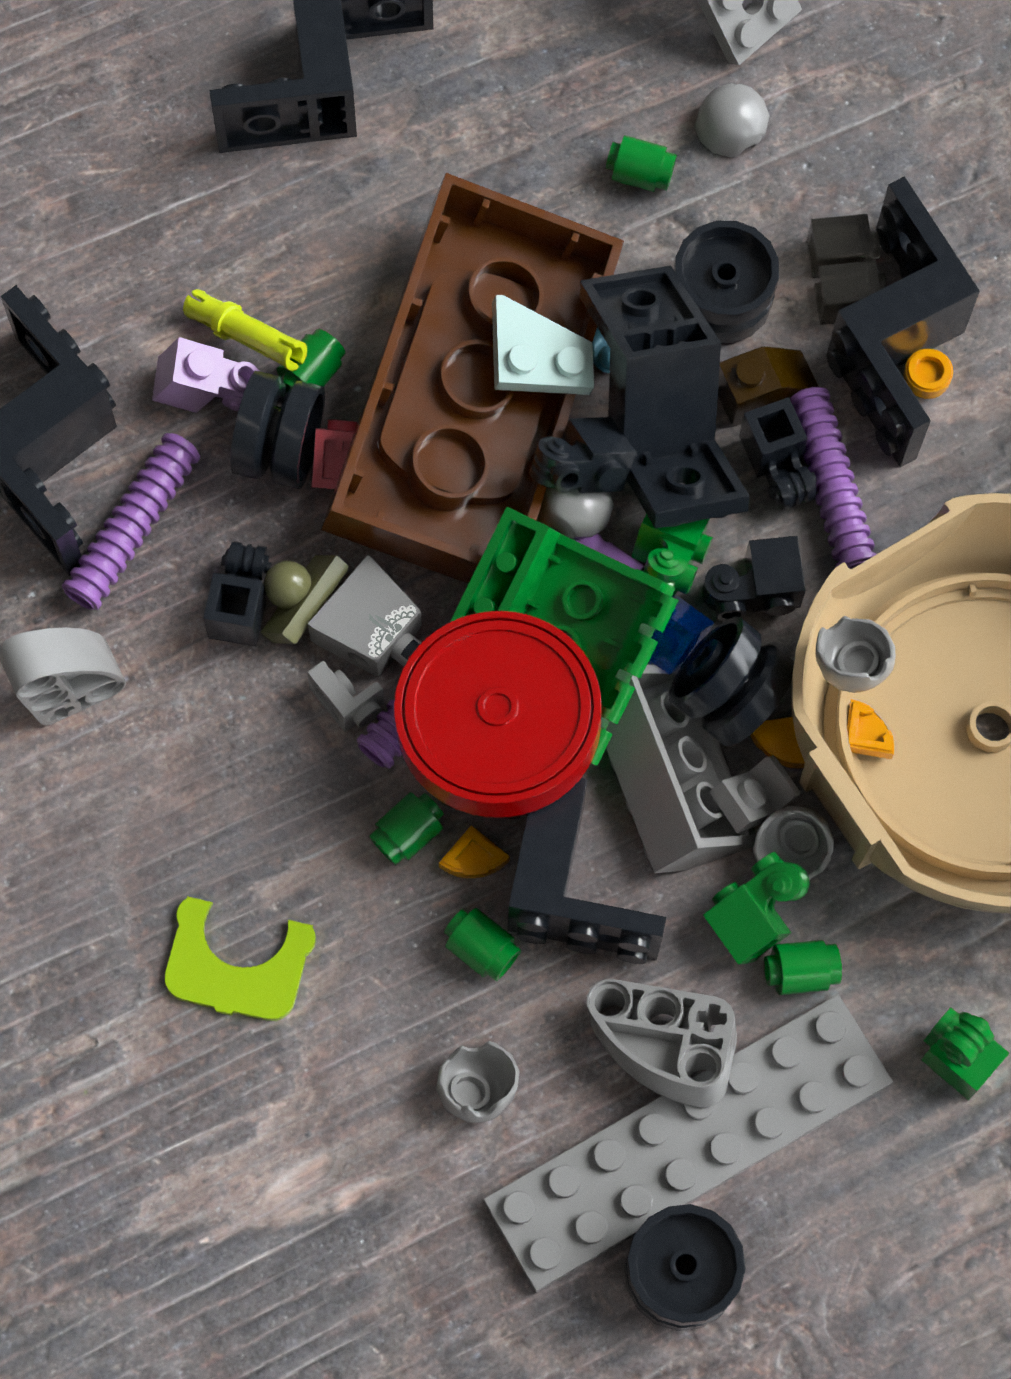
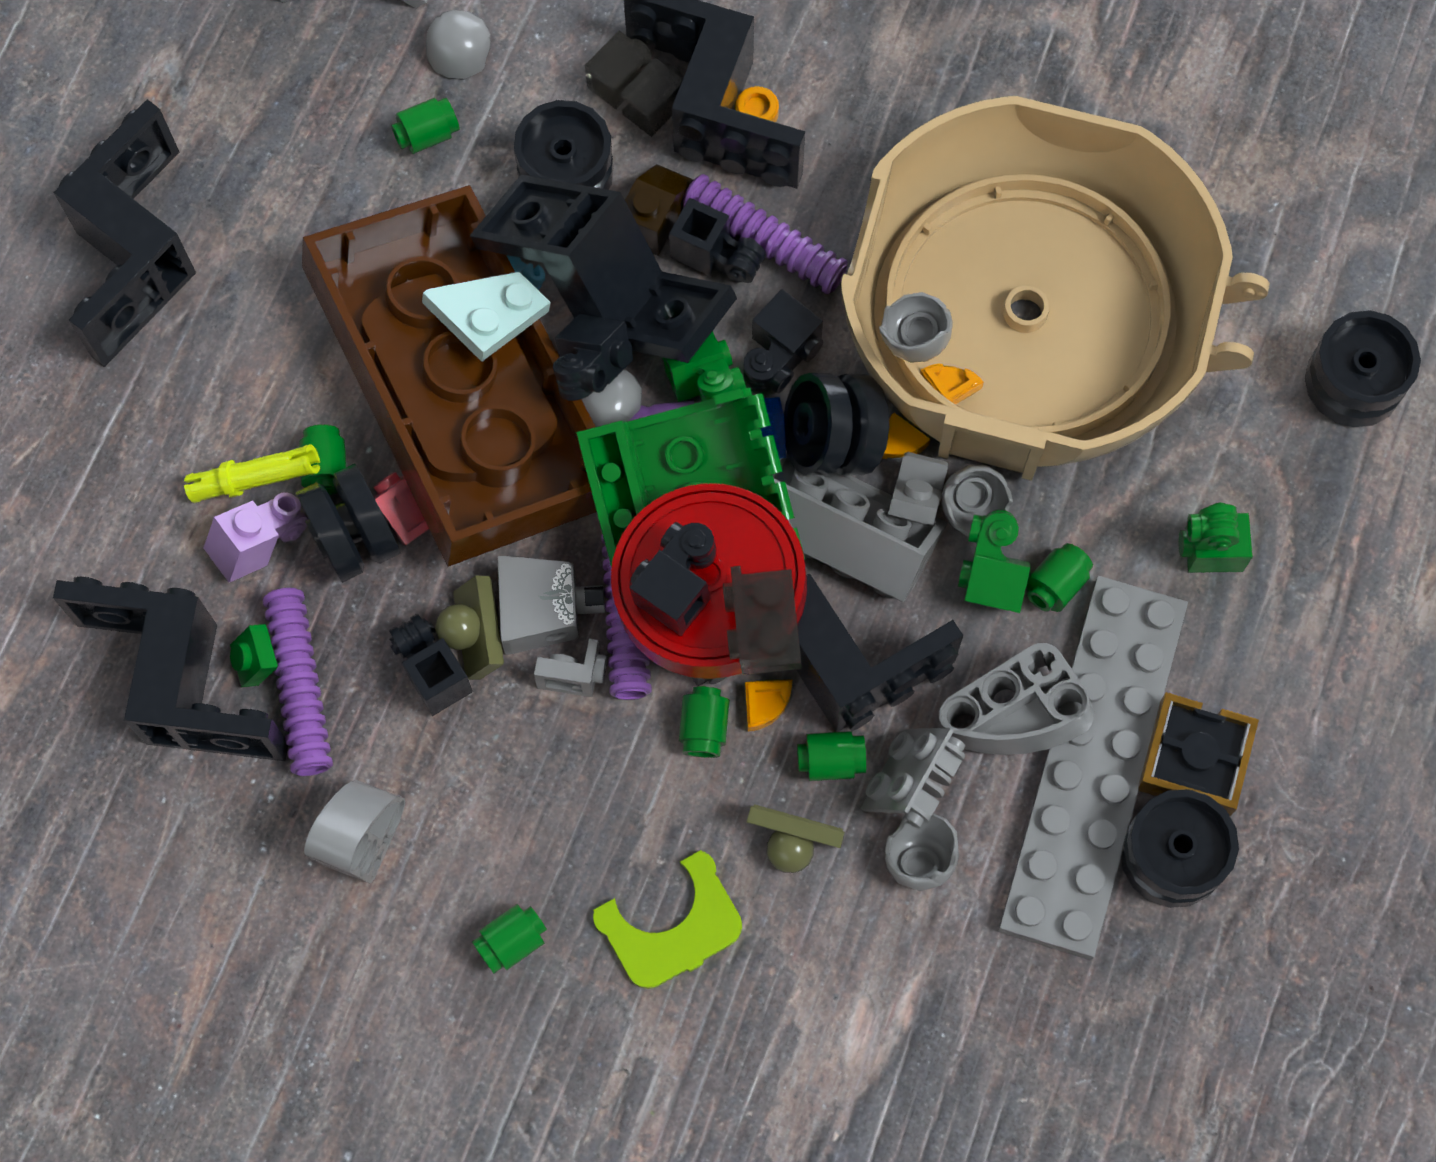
camera: 40 degrees left, 0 degrees up
(102, 859) = (510, 938): none -> green brick
(116, 472) = (253, 655): none -> green plate
(391, 978) = (792, 844): none -> olive tile
(455, 679) = (667, 585): none -> black brick
(499, 778) = (765, 621): none -> clear smoke bracket
(545, 997) = (904, 779): none -> light grey hinge
(777, 1208) = (1198, 751): none -> black piece

